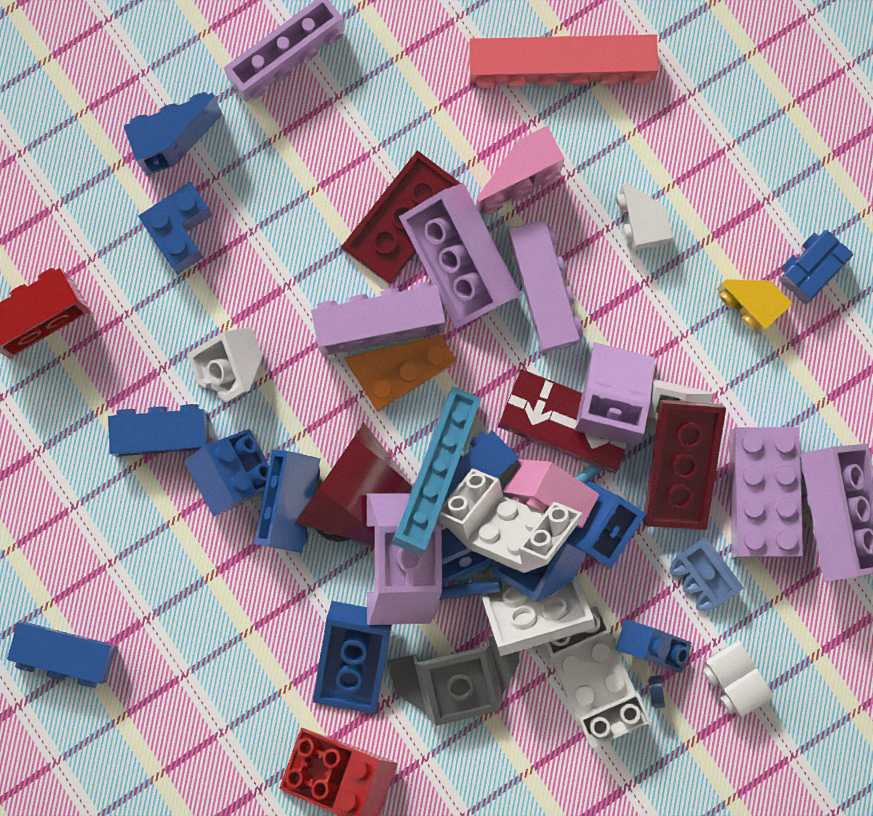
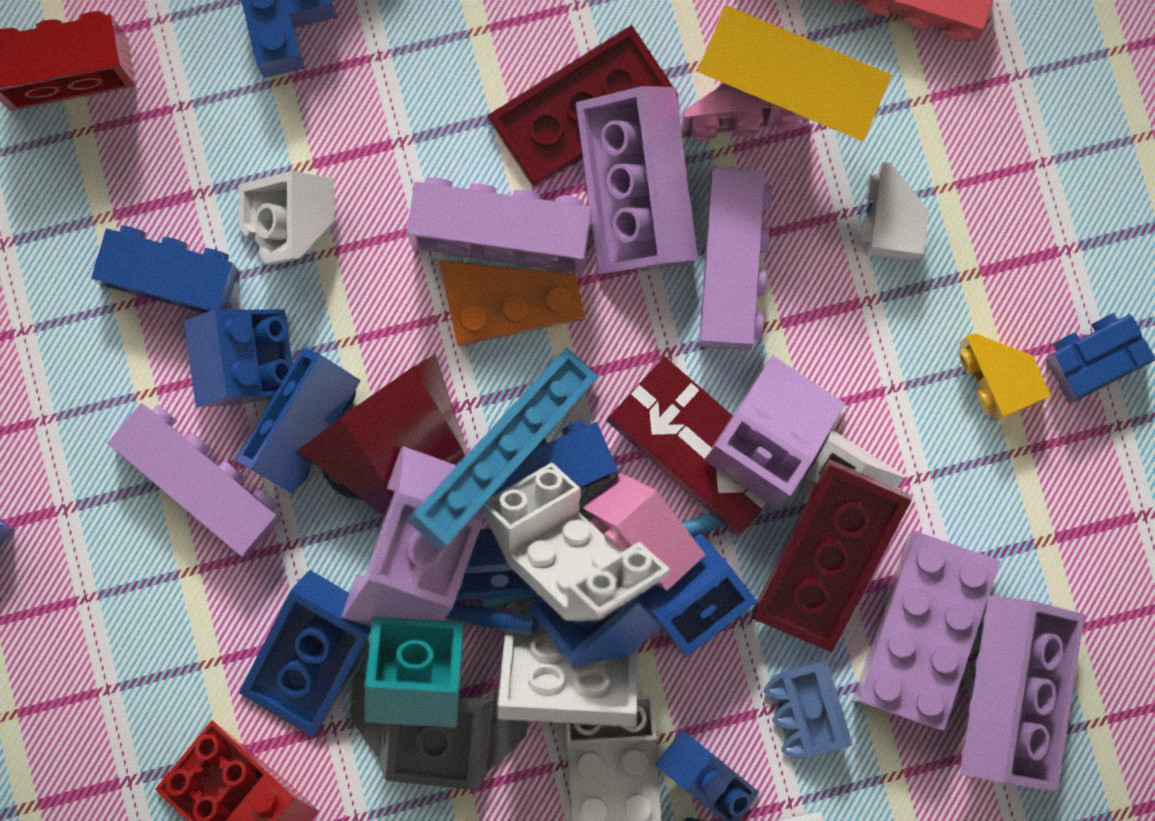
camera: 20 degrees right, 0 degrees up
(229, 567) = (194, 480): none -> lavender brick
(431, 644) = (413, 672): none -> teal brick
(545, 145) = (794, 73): none -> yellow brick

